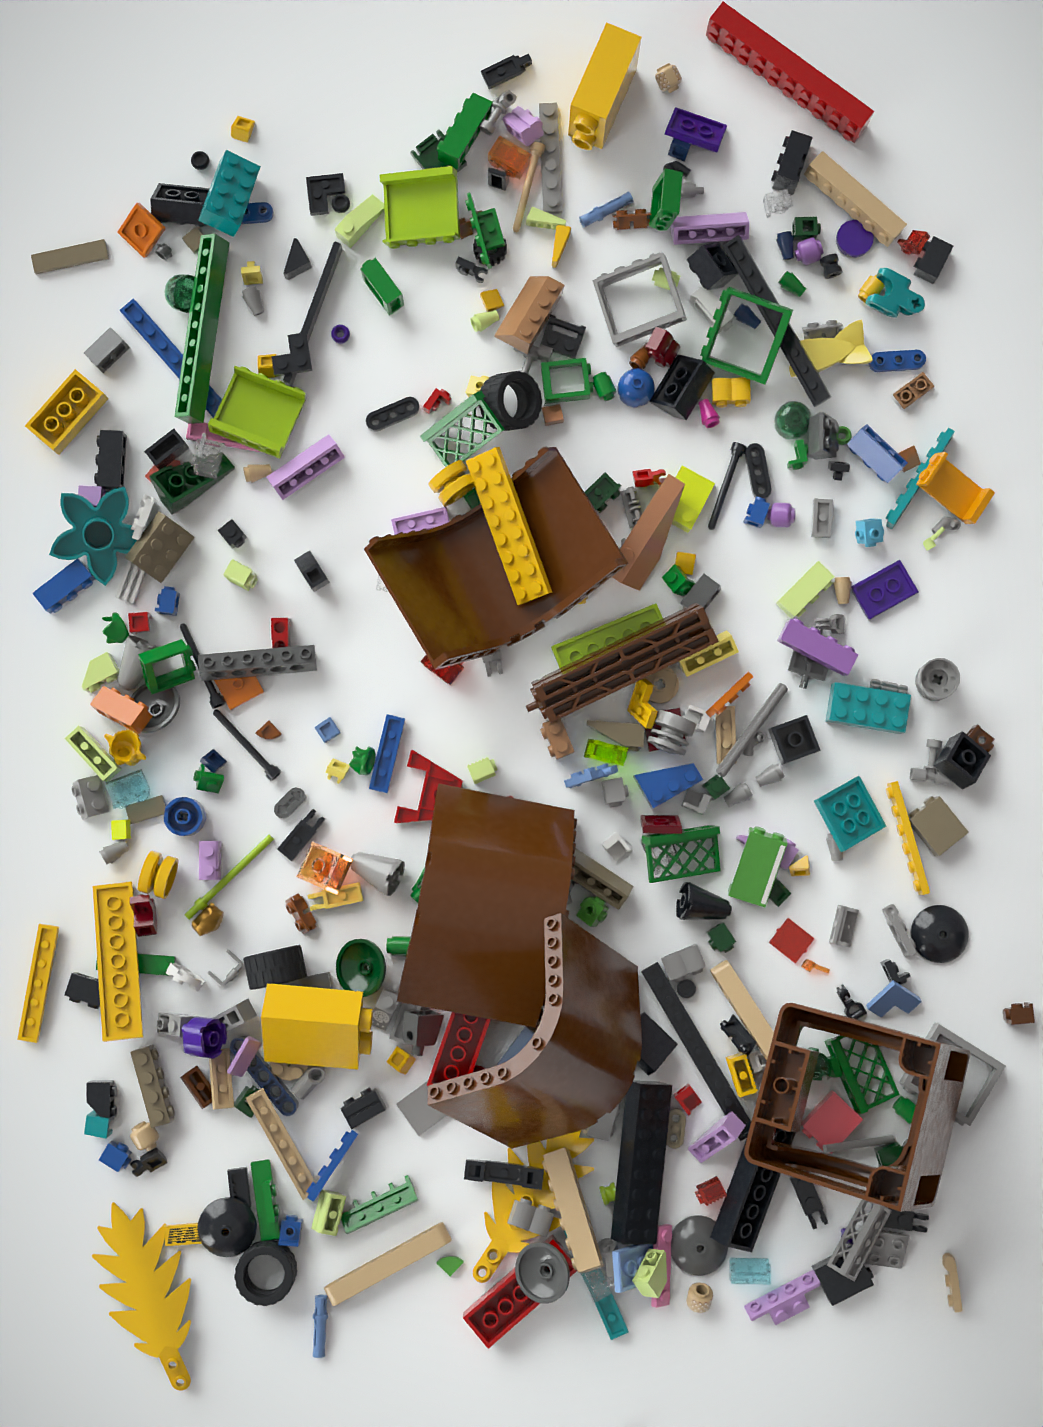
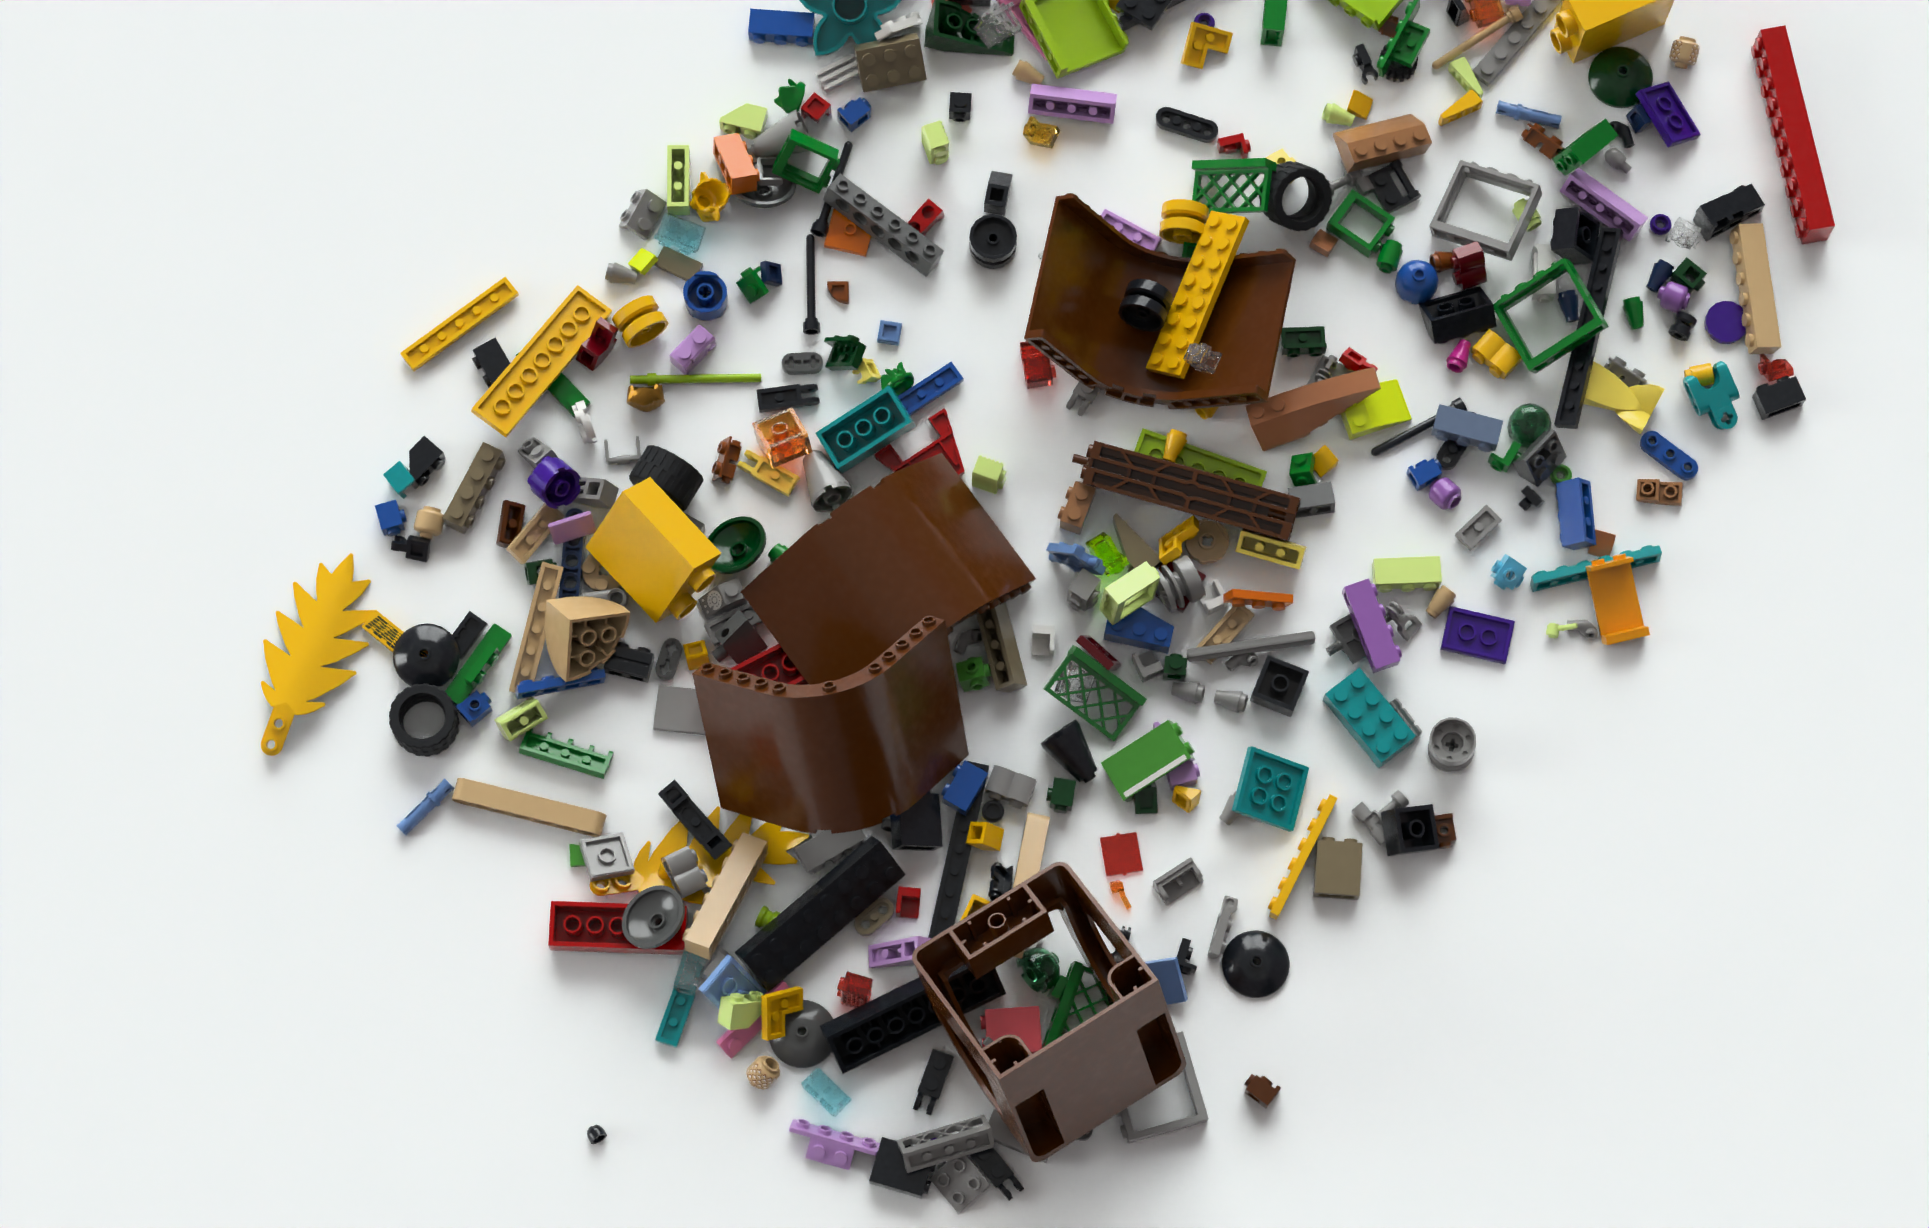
camera: 45 degrees right, 10 degrees down
(138, 697) = (767, 181): none -> light grey piece
(303, 505) = (1040, 133): none -> clear yellow bracket
(313, 772) = (845, 352): none -> dark green bracket
(317, 1121) = (582, 633): none -> tan brick
(344, 598) = (997, 229): none -> black wheel
(349, 348) = (1202, 38): none -> yellow plate
(374, 813) = (865, 429): none -> teal brick
(390, 1078) = (673, 660): none -> dark grey beam
(469, 1251) = (606, 856): none -> light grey tile
(482, 564) = (1145, 305): none -> black wheel
(552, 567) = (1202, 357): none -> clear brick
(583, 640) = (1174, 444): none -> yellow cone
(640, 142) = (1616, 88): none -> dark green dish
(650, 769) = (1129, 593): none -> yellowish green window
(658, 993) = (964, 788): none -> blue brick
(672, 1252) = (774, 1008): none -> yellow plate
(698, 1011) = (985, 836): none -> yellow brick
(755, 204) = (1660, 218): none -> dark purple plate
(759, 459) = (1467, 428): none -> sand blue brick

